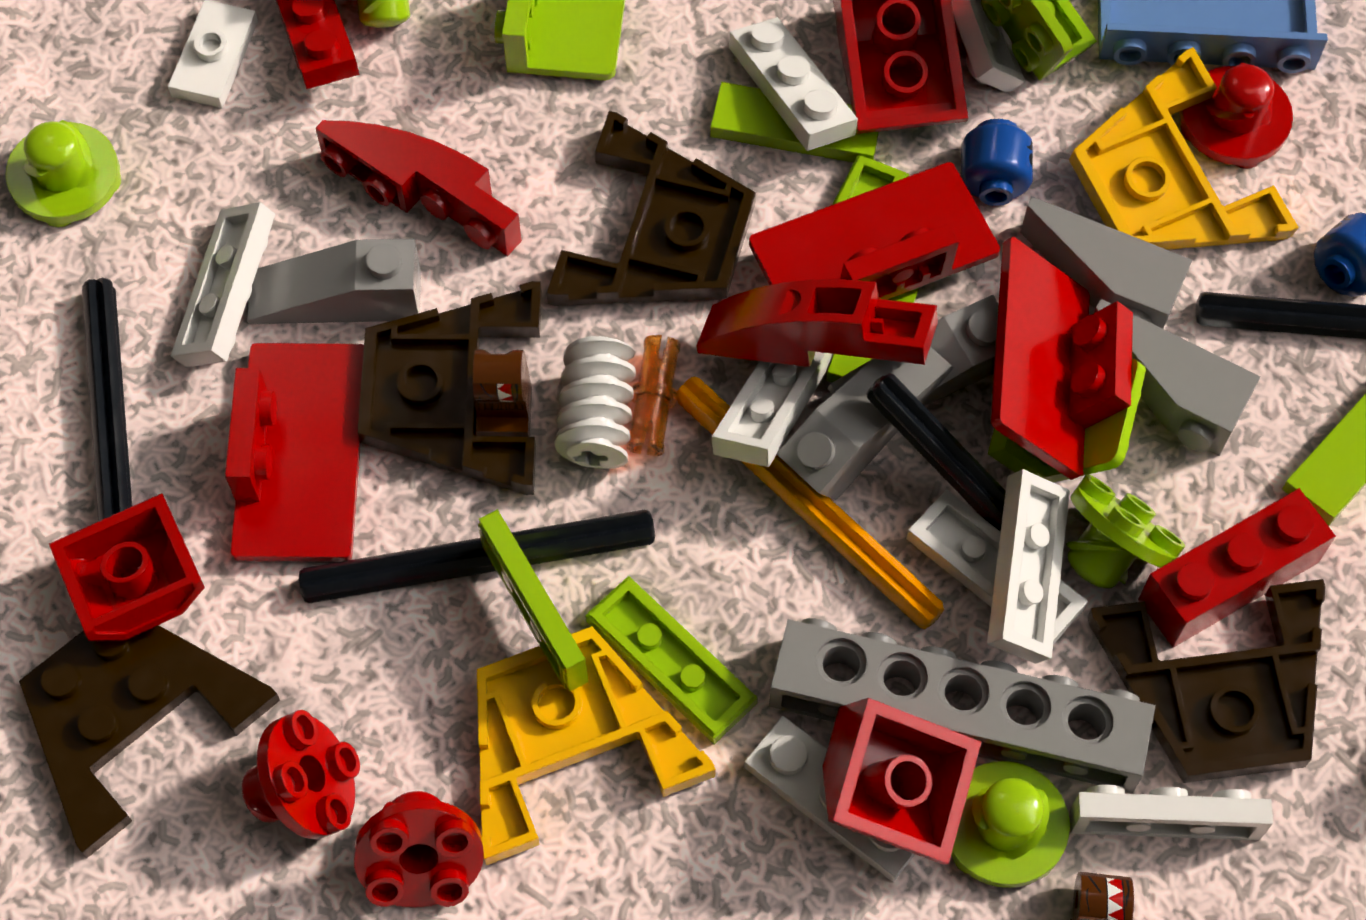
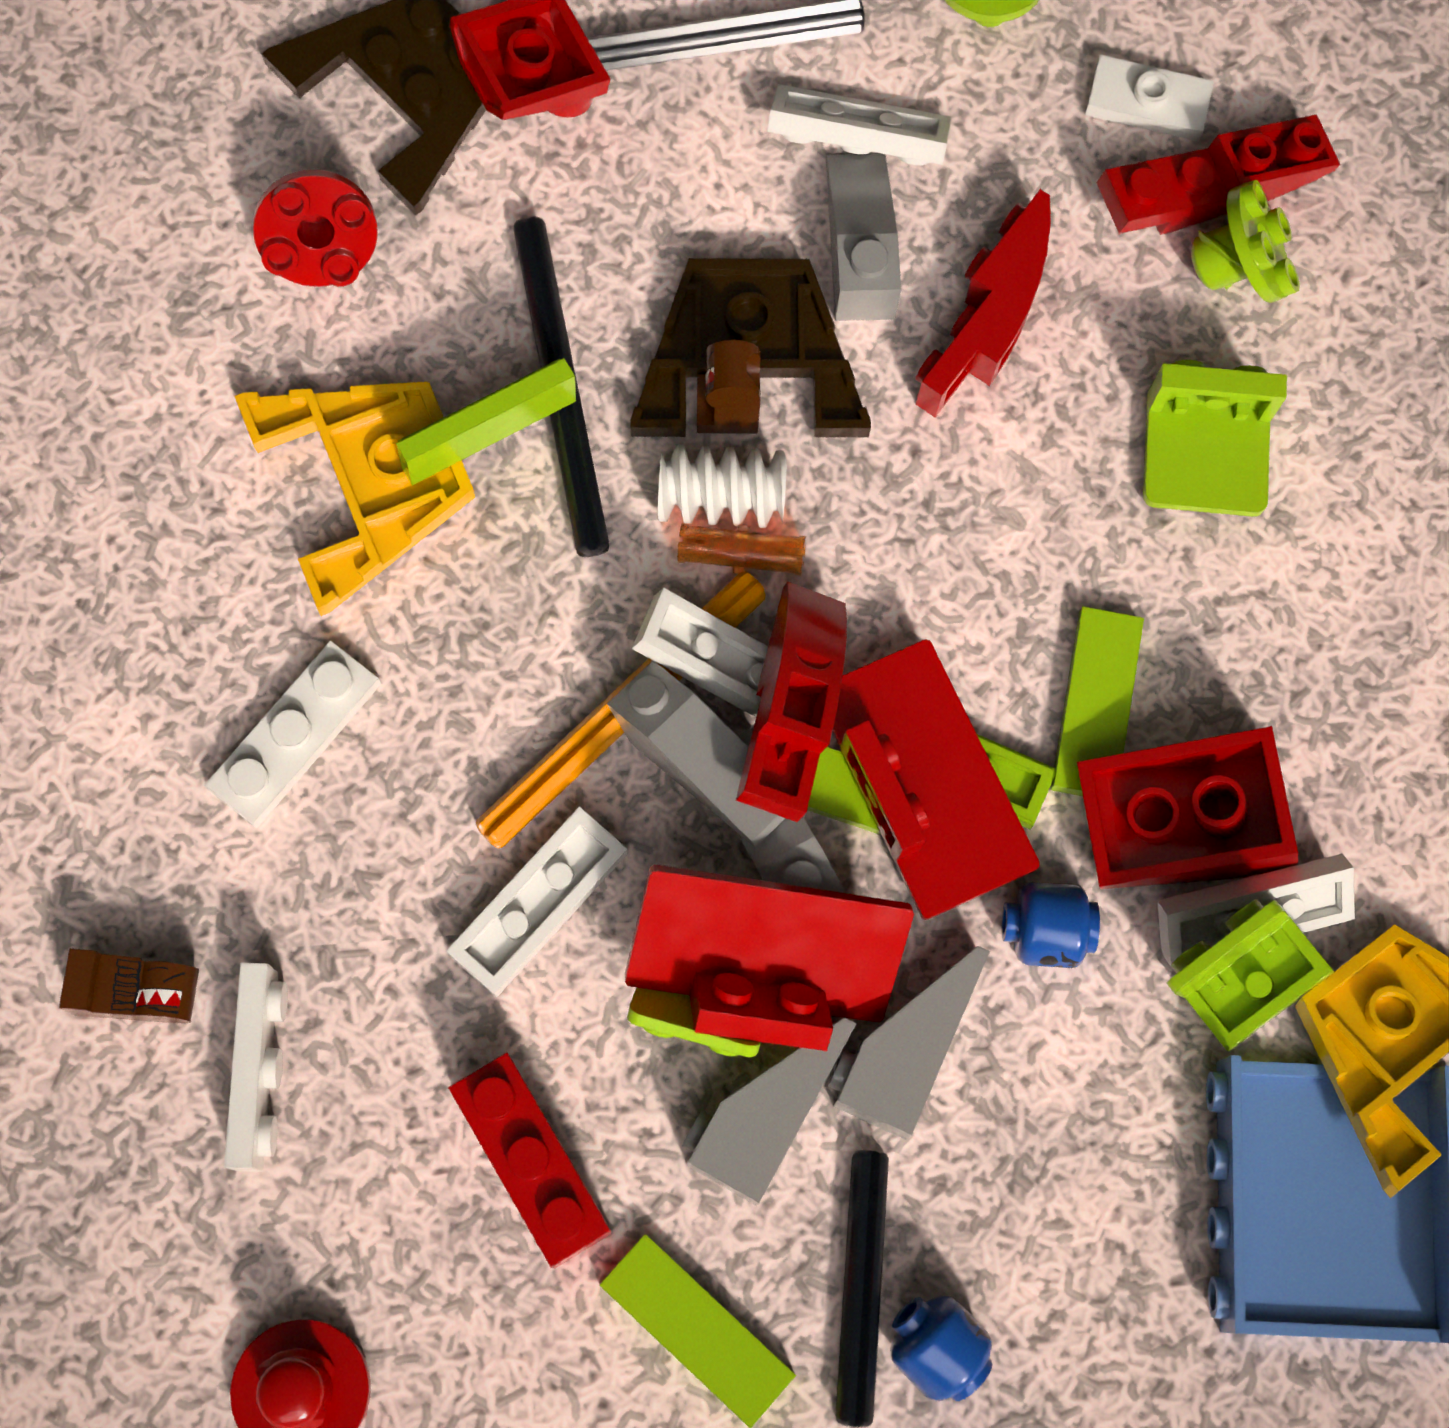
camera: 85 degrees right, 10 degrees up
(295, 452) = (673, 199): red bracket -> none
(418, 853) = (243, 332): red plate -> none
(671, 660) = (446, 573): lime tile -> none
(681, 234) = (946, 576): dark brown wing -> none
(793, 83) = (1142, 693): white plate -> none
(898, 778) = (282, 776): red slope -> none
(939, 447) = (639, 848): black axle -> none
(1011, 826) = (257, 900): lime plate -> none
(1028, 567) = (520, 922): white plate -> none
(1046, 746) = (409, 695): light grey brick -> none
(1116, 535) = (572, 1033): lime plate -> none
(1151, 182) = (1036, 1102): yellow wing -> none
(1229, 708) = (374, 1150): dark brown wing -> none
(1242, 120) = (1138, 1221): red plate -> none

